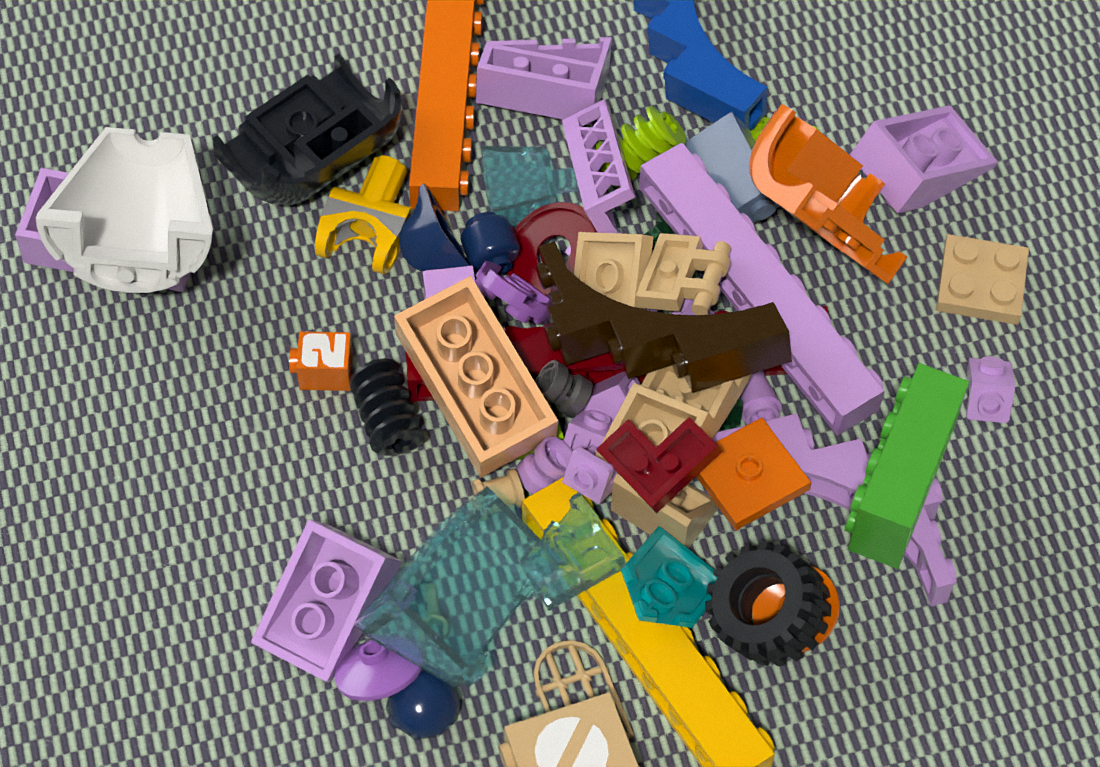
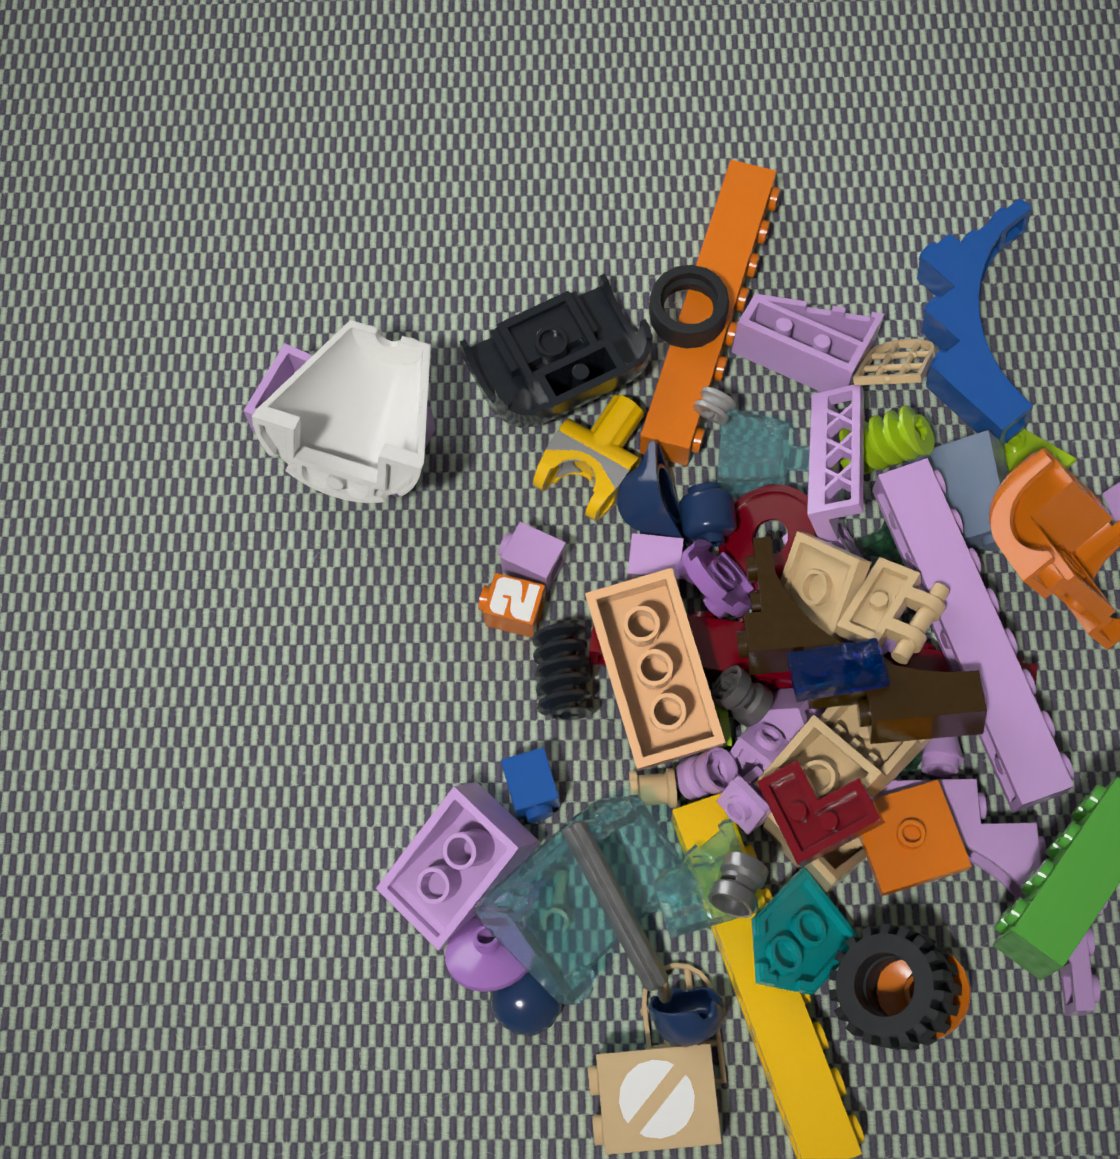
camera: 20 degrees right, 10 degrees up
(331, 310) = (532, 555): none -> lavender brick
(380, 513) = (531, 785): none -> blue brick
(428, 39) = (688, 278): none -> black tyre
(473, 143) = (714, 405): none -> light grey bush
(489, 594) = (615, 905): none -> flat silver axle
(583, 677) = (688, 1015): none -> dark blue hair
(601, 539) = (738, 885): none -> flat silver wheel
(633, 78) = (890, 354): none -> tan window
(646, 328) = (837, 670): none -> clear blue plate

